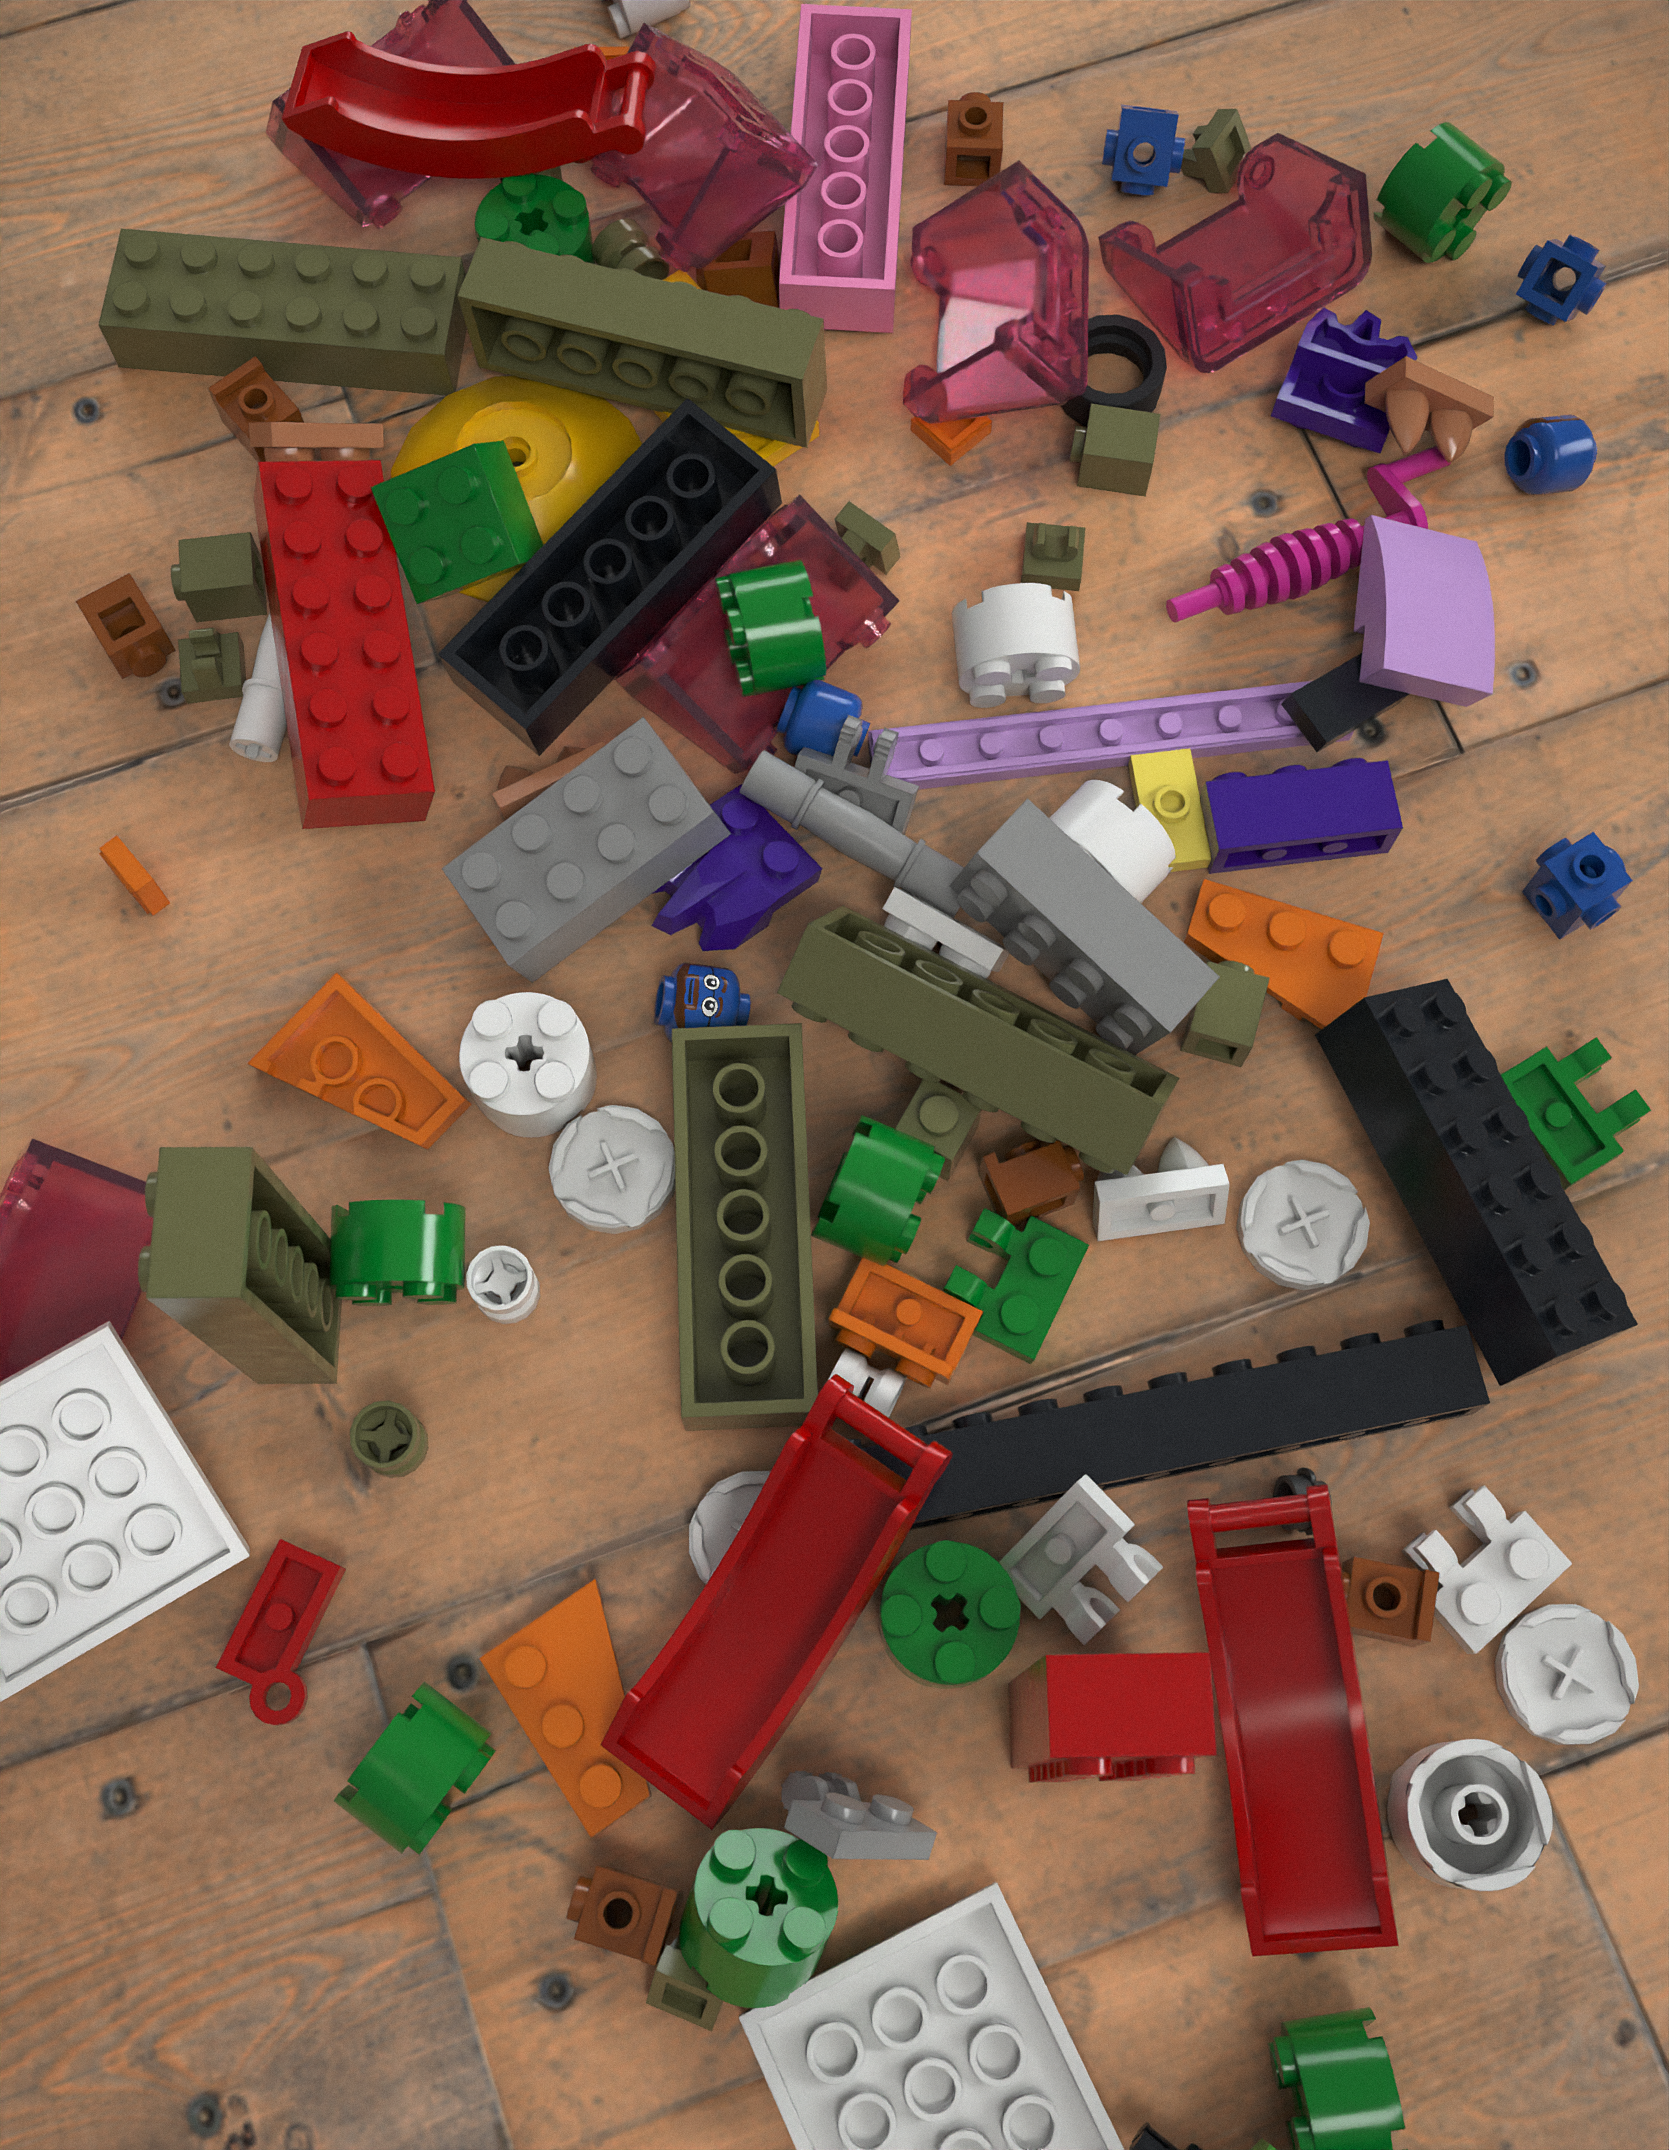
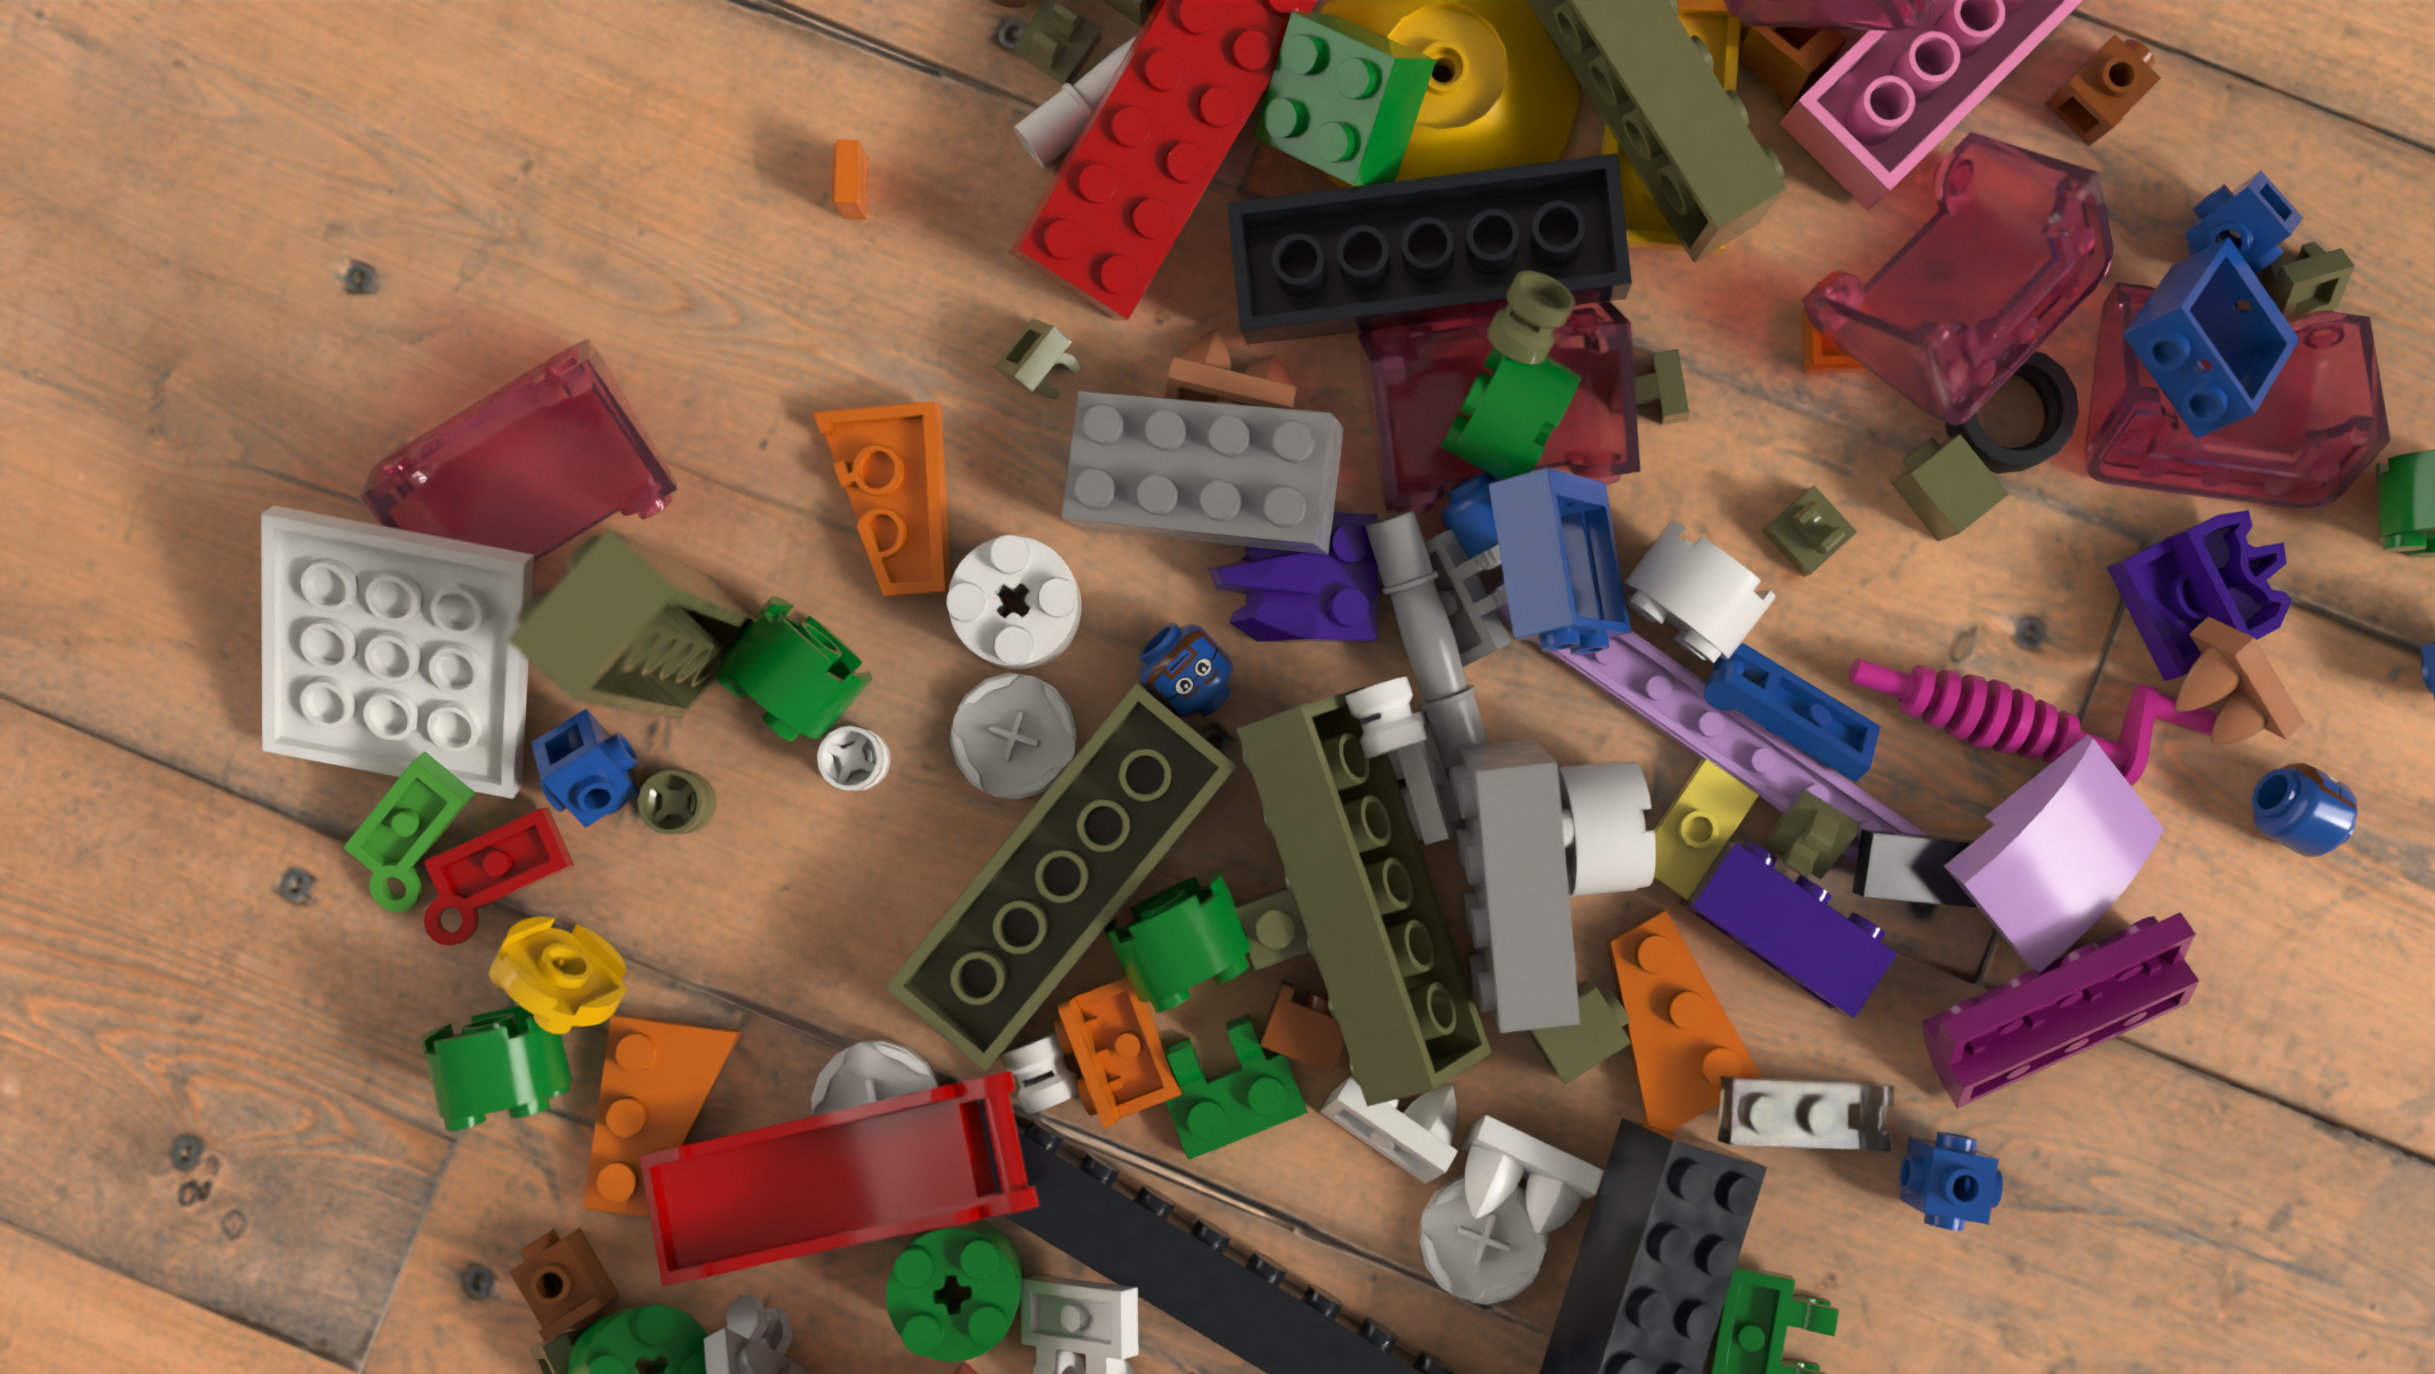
camera: 40 degrees right, 15 degrees up
(177, 1653) = (406, 828): none -> bright green hinge
(292, 1472) = (586, 768): none -> blue brick
(385, 884) = (1033, 356): none -> olive tile
(415, 1648) = (532, 974): none -> yellow plate
(726, 542) = (1528, 322): none -> olive wheel
(878, 898) = (1386, 717): none -> white wheel
(899, 691) = (1559, 561): none -> blue window
(1156, 672) = (1793, 710): none -> blue plate
(1202, 225) = (2198, 318): none -> blue window
(1251, 739) = (1811, 835): none -> olive tile
(1265, 1138) = (1505, 1155): none -> white tile
(1435, 929) = (1803, 1113): none -> clear smoke plate
(1530, 709) = (2062, 1009): none -> magenta brick

